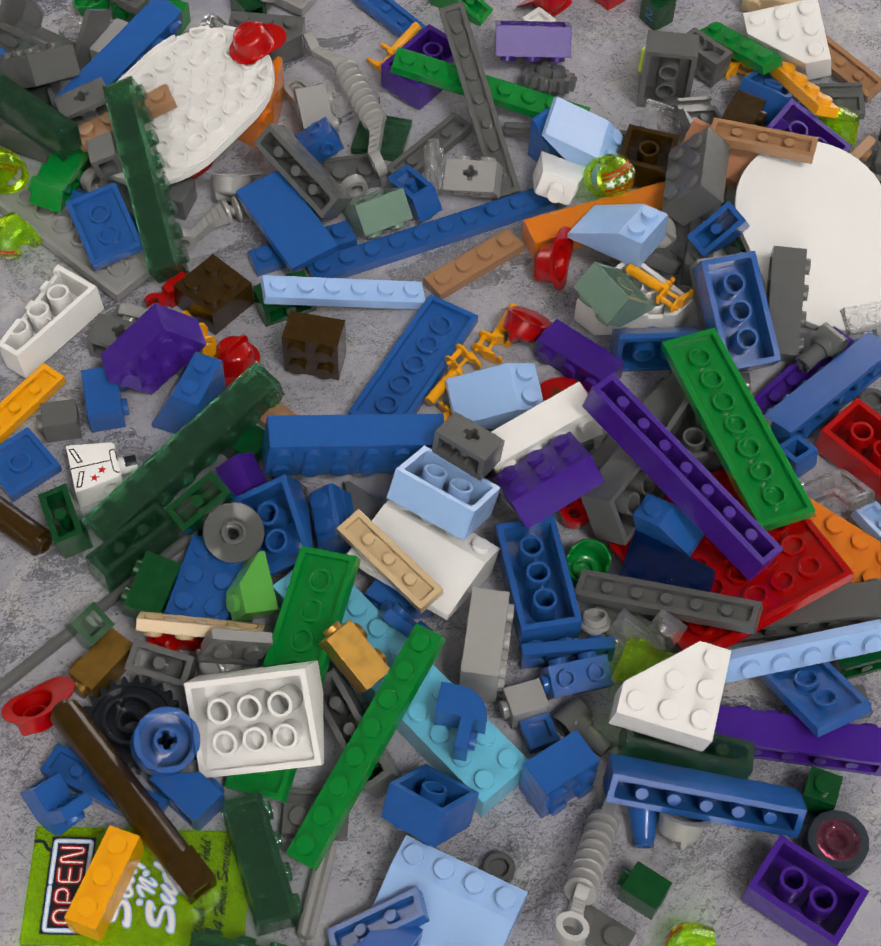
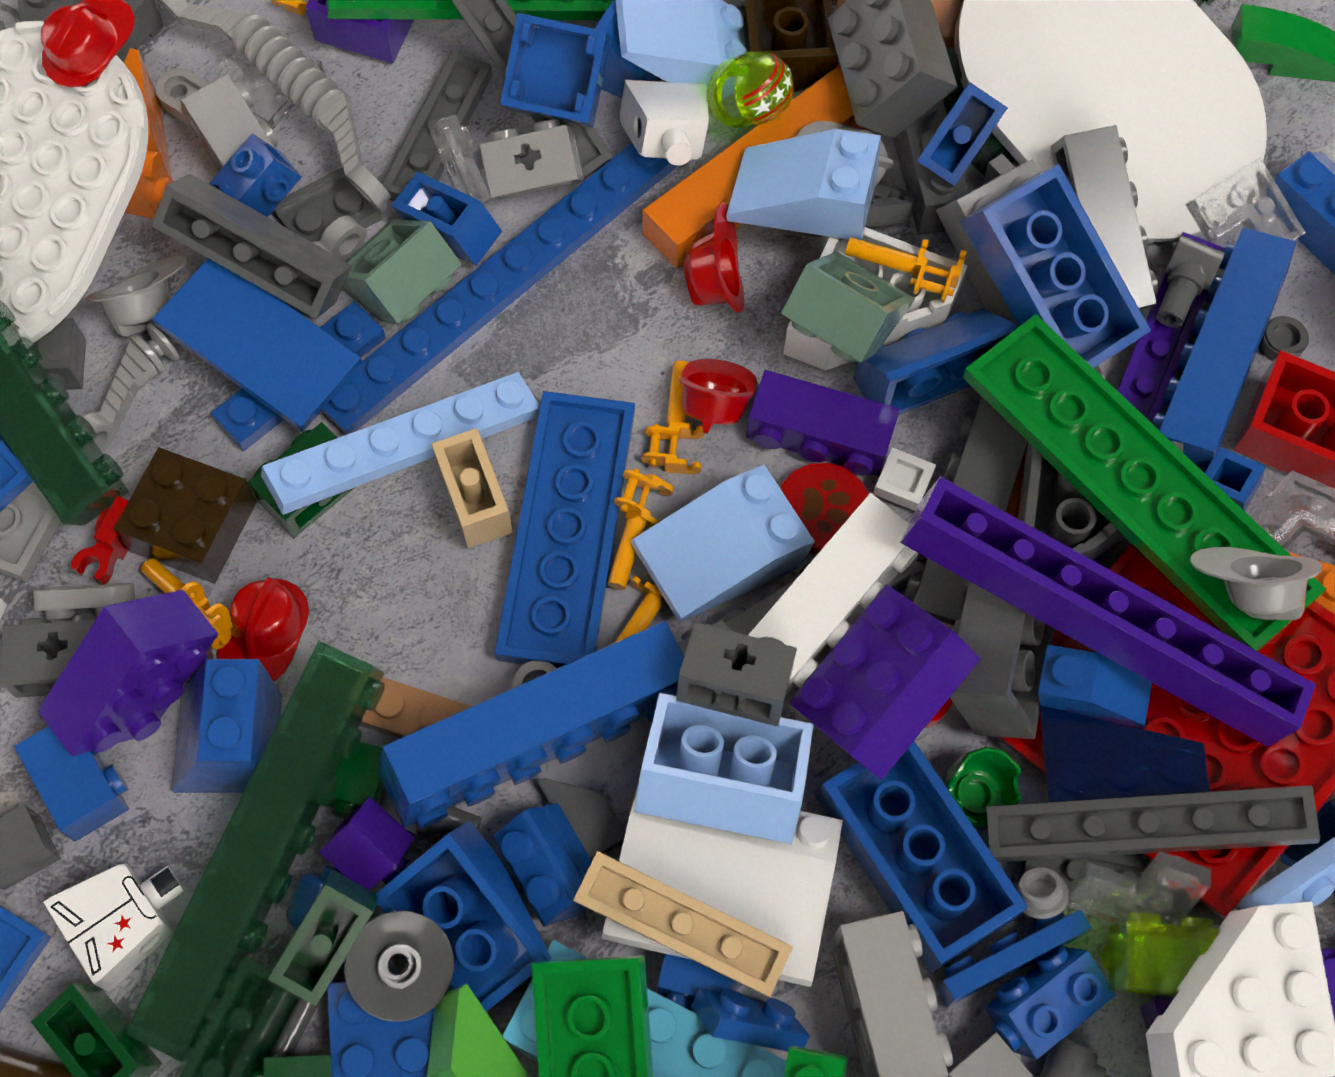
camera: 20 degrees left, 10 degrees up
(314, 345) = (393, 556): dark brown brick -> none
(370, 327) = (472, 488): none -> tan brick
(393, 141) = (374, 129): clear green tile -> none
(473, 264) = (587, 310): medium nougat plate -> none
(502, 132) = (555, 70): none -> blue container
(774, 491) = (1260, 582): none -> light grey piece

